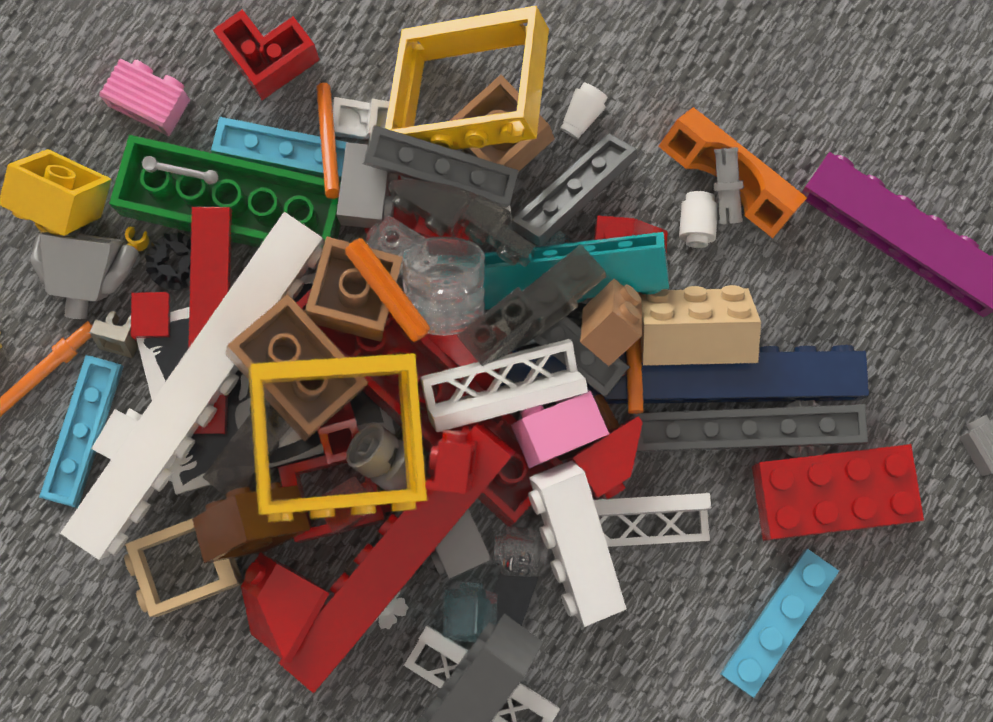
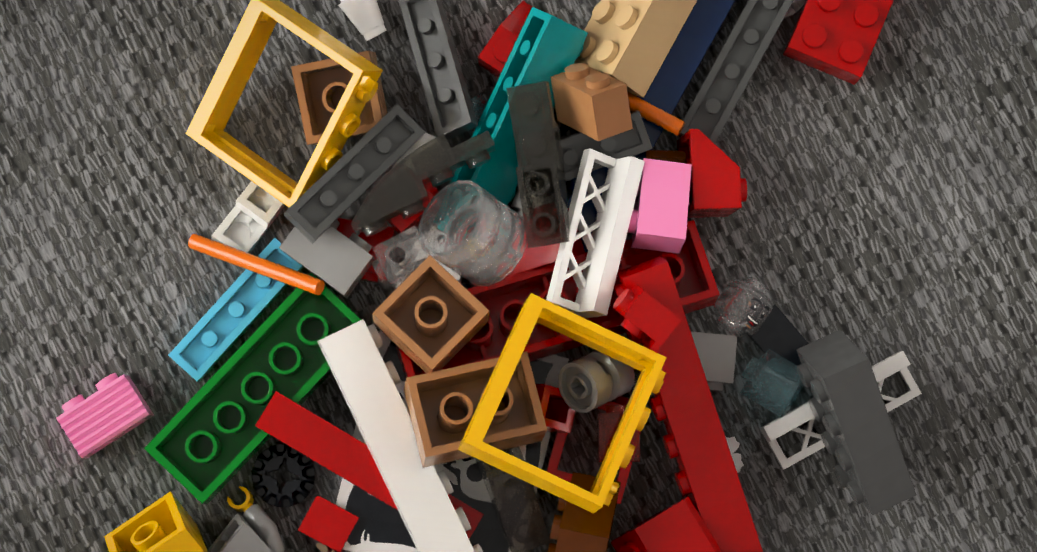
camera: 65 degrees left, 5 degrees up
(151, 165) = (187, 443): light grey hinge -> none
(269, 59) = (139, 282): red brick -> none
(387, 289) = (455, 285): orange axle -> none
(577, 543) = (768, 250): white brick -> none
(656, 505) = (760, 182): white fence -> none
(779, 622) = (934, 113): medium azure plate -> none

